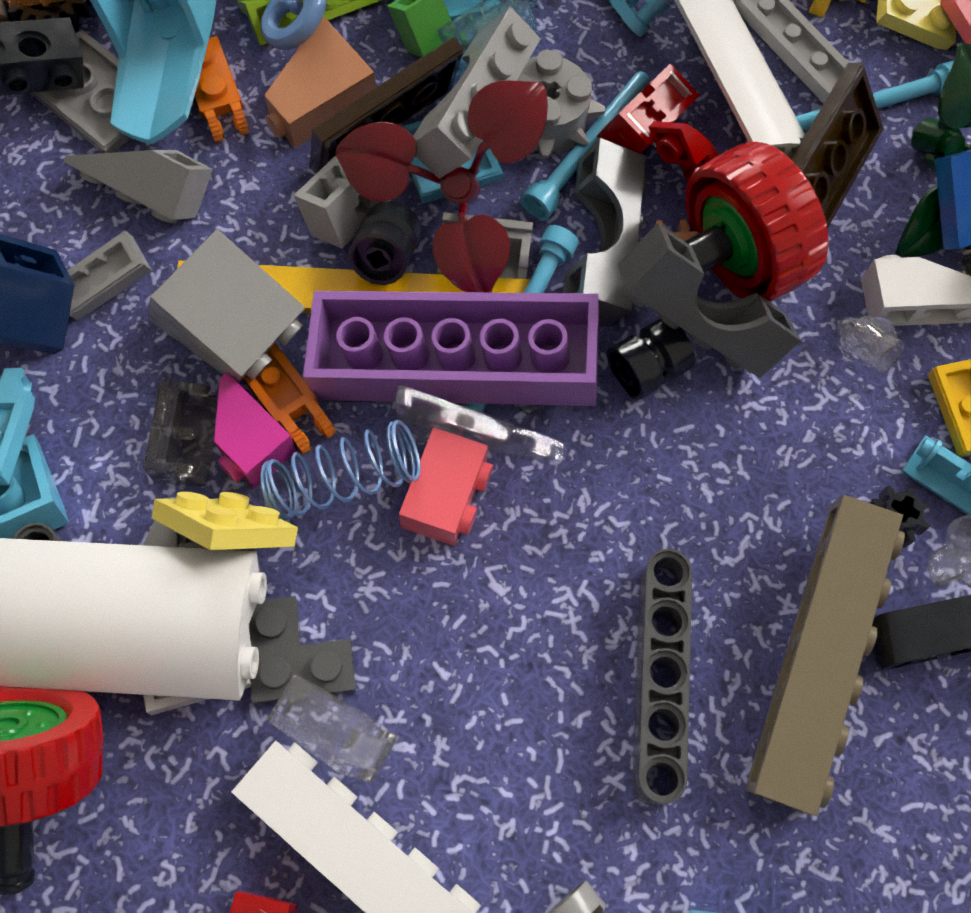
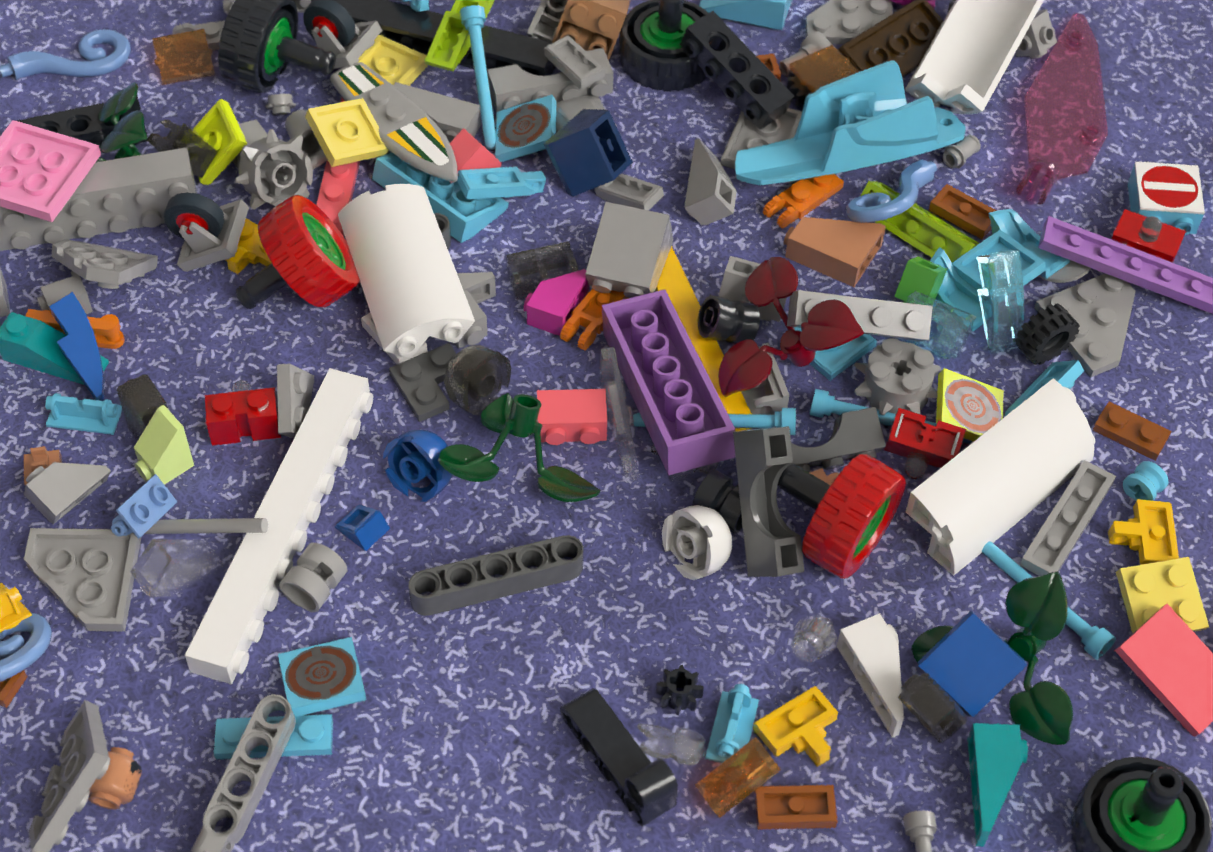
camera: 70 degrees right, 15 degrees down
(224, 521) = (487, 301): light yellow plate -> none
(259, 867) = (294, 398): none -> light grey wing
(332, 729) = (386, 409): clear slope -> none
(334, 589) = (476, 377): none -> clear smoke cylinder
(391, 101) = (826, 277): dark brown tile -> none
(394, 427) = (555, 377): medium blue piece -> none
(447, 711) = (412, 459): none -> blue cylinder
(504, 832) = (363, 526): none -> blue slope
(507, 648) = (519, 419): none -> dark green plant
(616, 57) = (968, 403): none -> tile
(682, 145) = (900, 459): red slope -> none
(710, 404) = (699, 535): none -> white cylinder
(825, 656) = (550, 658): dark tan brick -> none
(840, 139) = (953, 562): dark brown tile -> none

